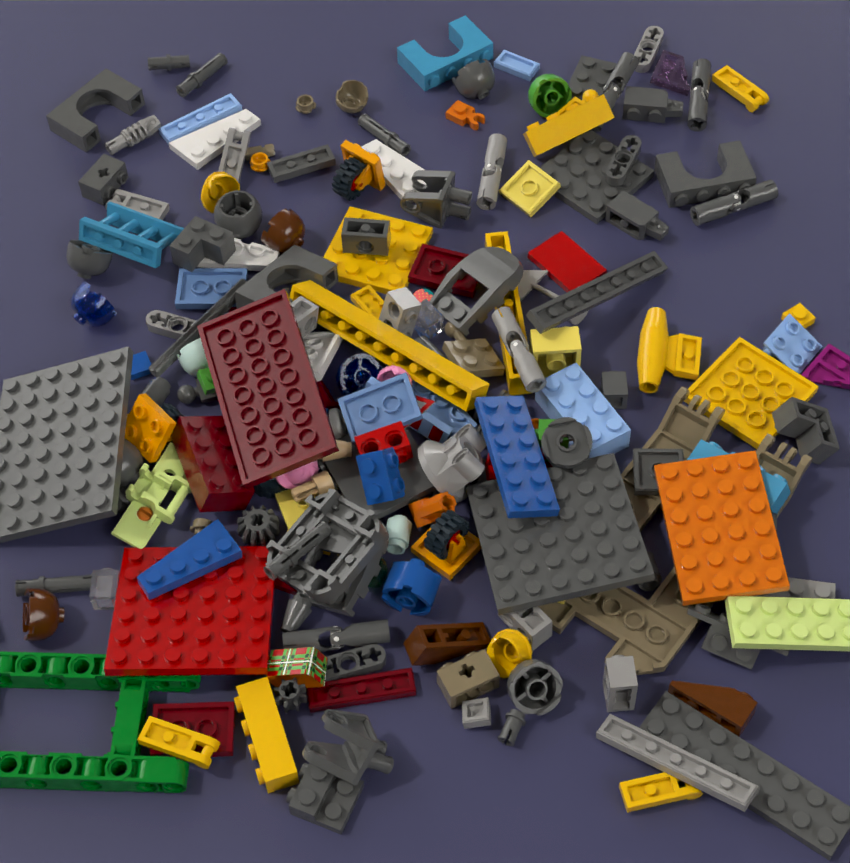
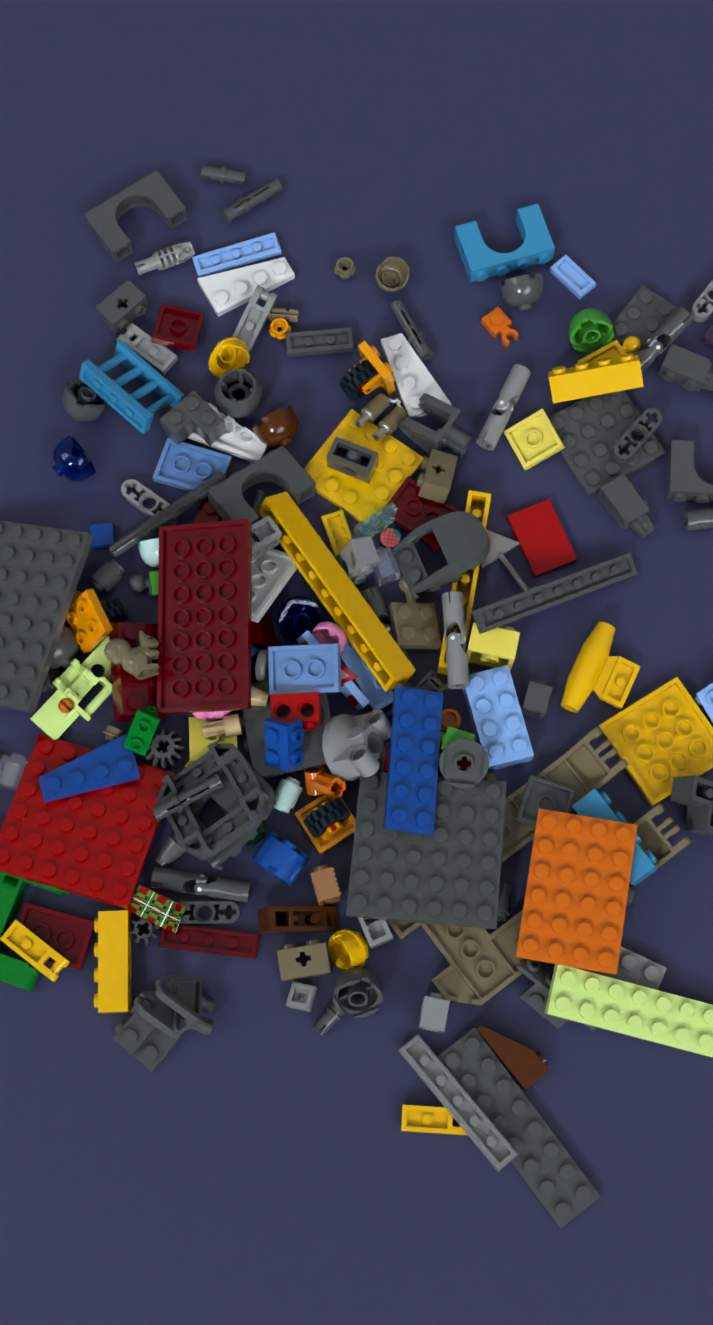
camera: 15 degrees right, 20 degrees up
(162, 182) = (178, 327): none -> dark red tile
(208, 439) = (135, 660): none -> dark tan animal
(232, 506) = (142, 730): none -> green hinge
(373, 199) = (375, 409): none -> dark tan piece
(408, 275) = (376, 523): none -> clear light blue plate
(450, 234) = (437, 475): none -> dark tan brick
(467, 597) = (326, 885): none -> medium nougat brick

